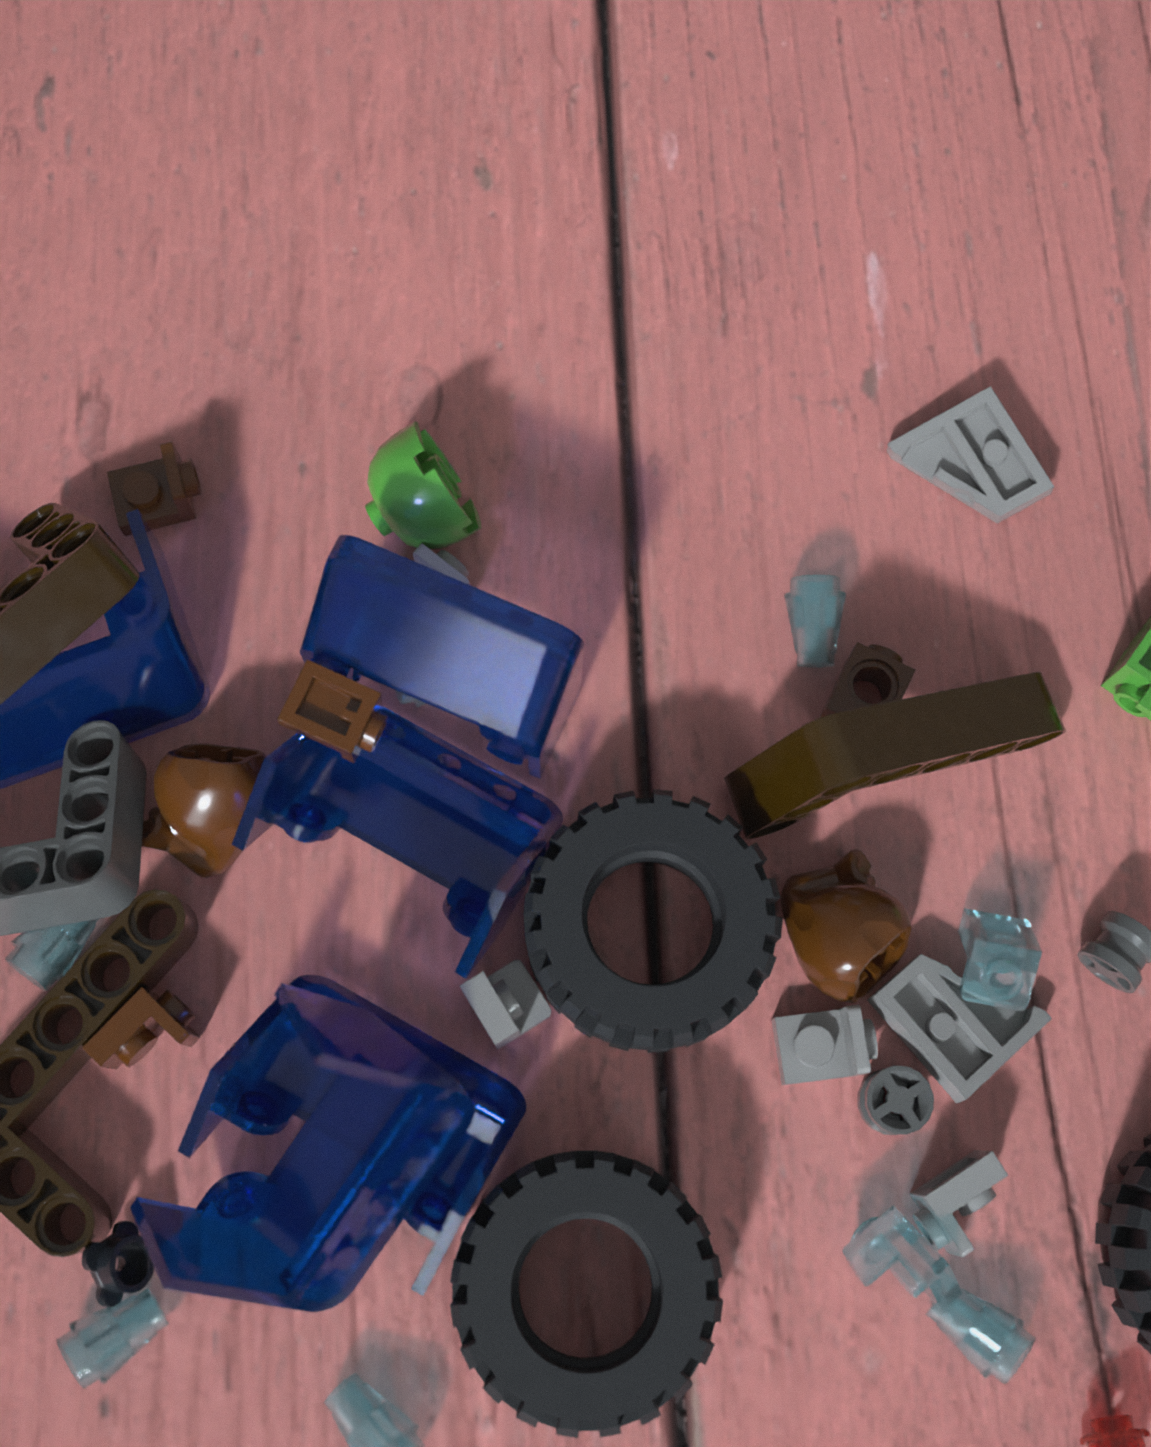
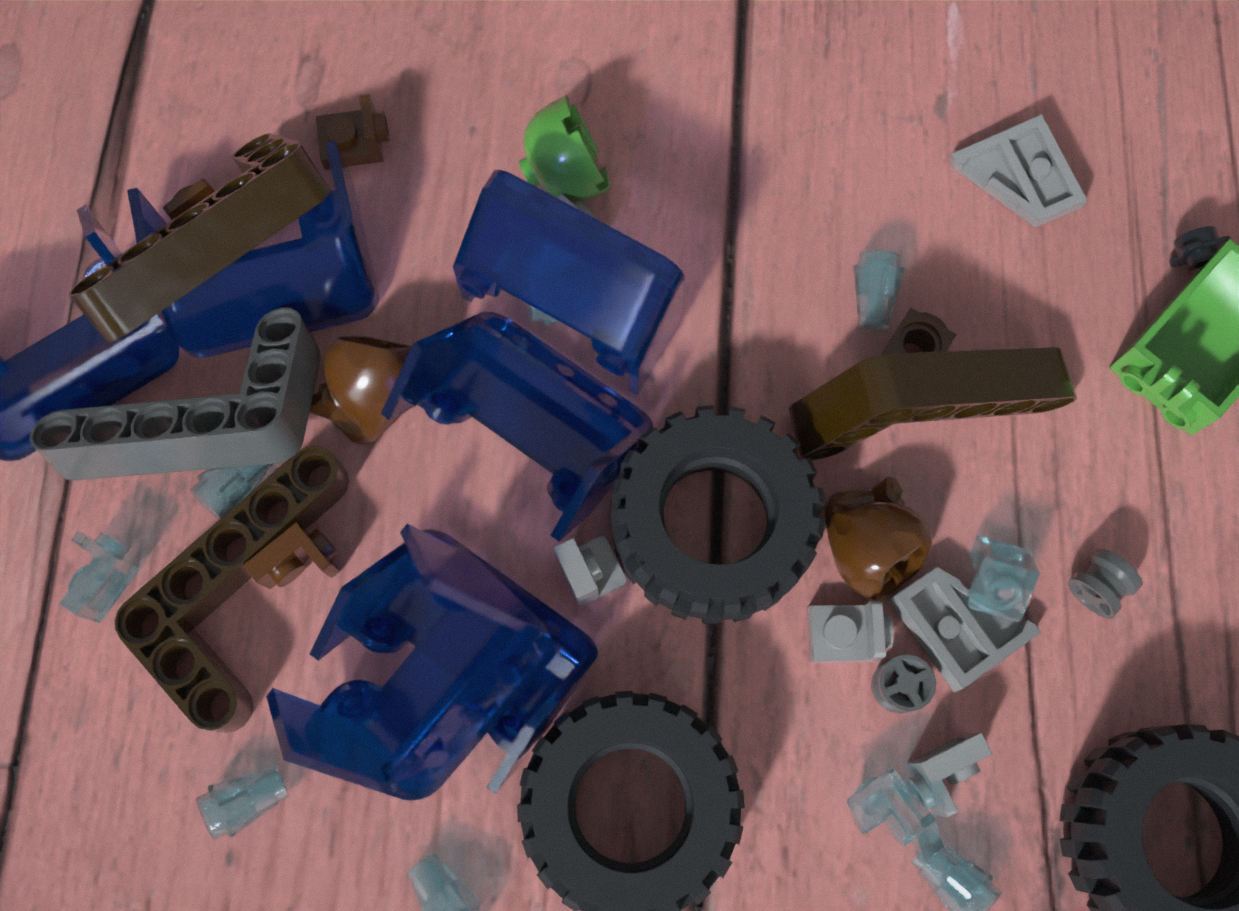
camera: 10 degrees right, 0 degrees up
(133, 1267) = (265, 745): black plate -> none
(334, 711) = (475, 315): reddish brown bracket -> none

